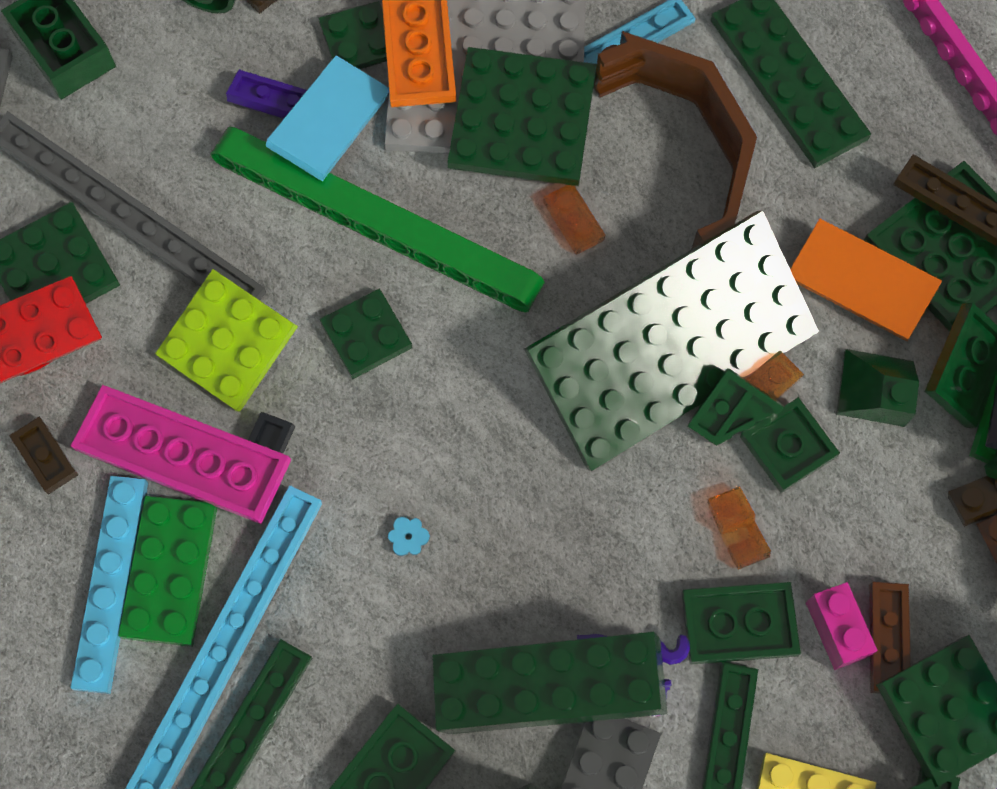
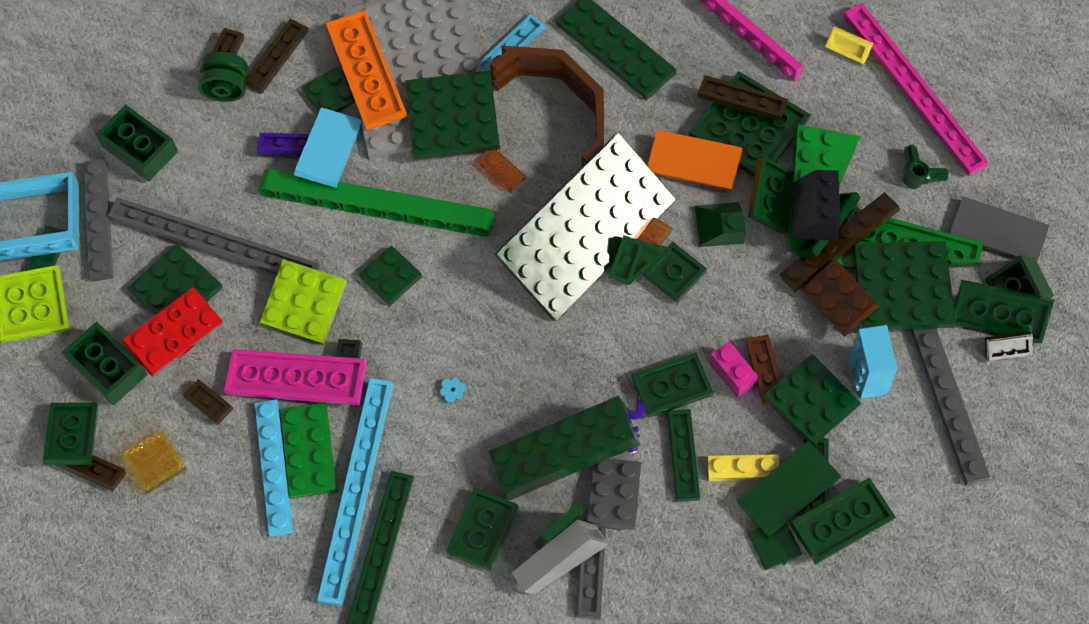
camera: 10 degrees left, 5 degrees down
(738, 528) = (656, 330): clear orange slope -> none

